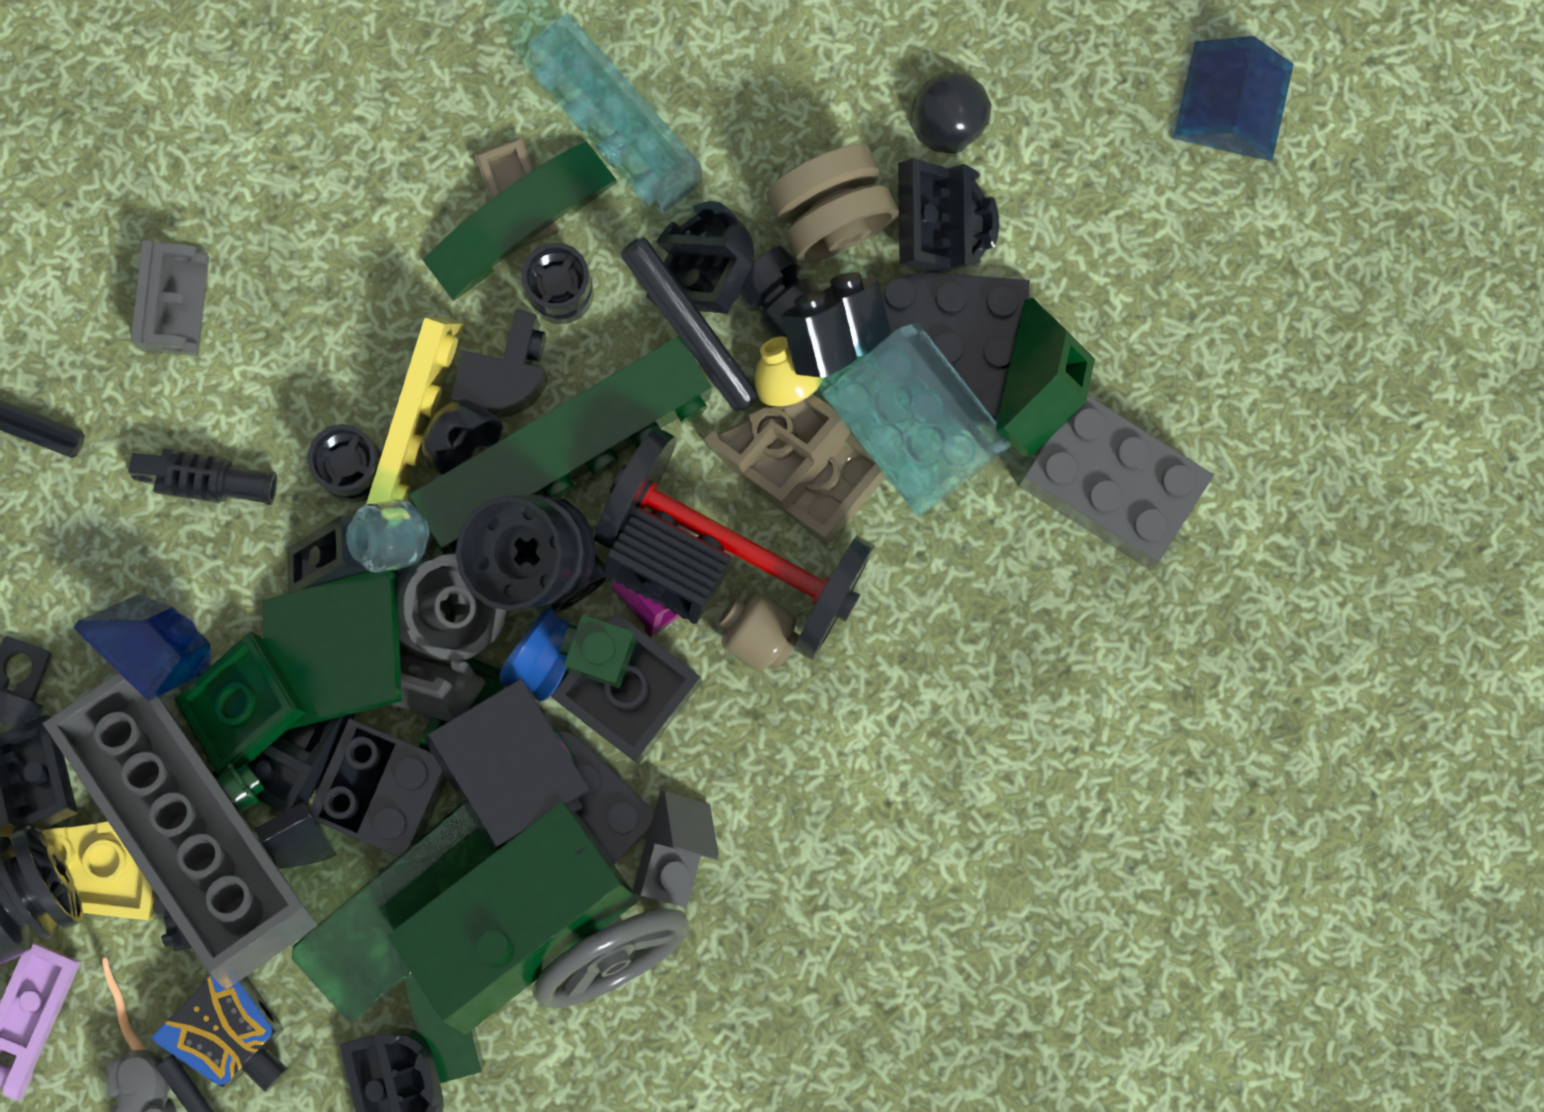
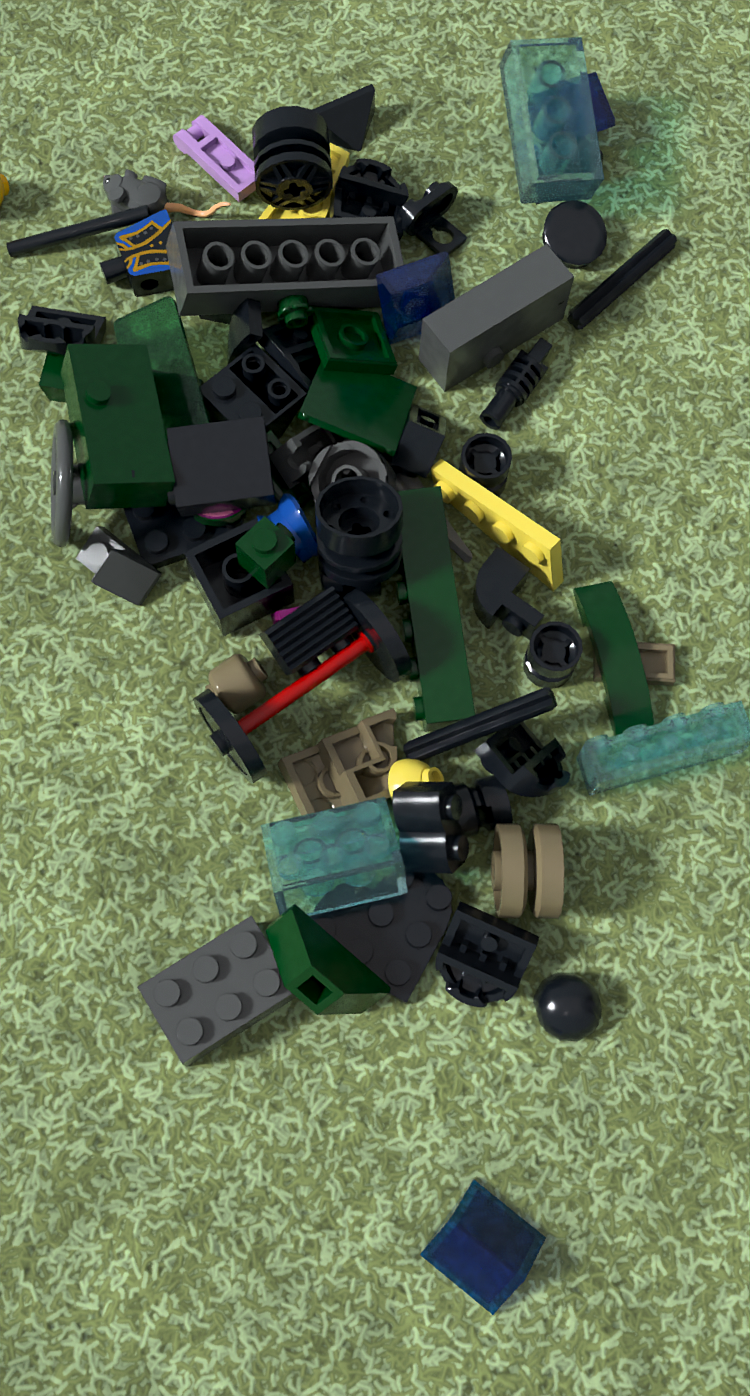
camera: 110 degrees right, 10 degrees down
(131, 533) = (495, 317): none -> dark grey brick
(169, 298) = (651, 409): dark grey hinge -> none
(387, 535) = (415, 456): clear light blue head -> none
(456, 433) = (470, 539): black hair -> none

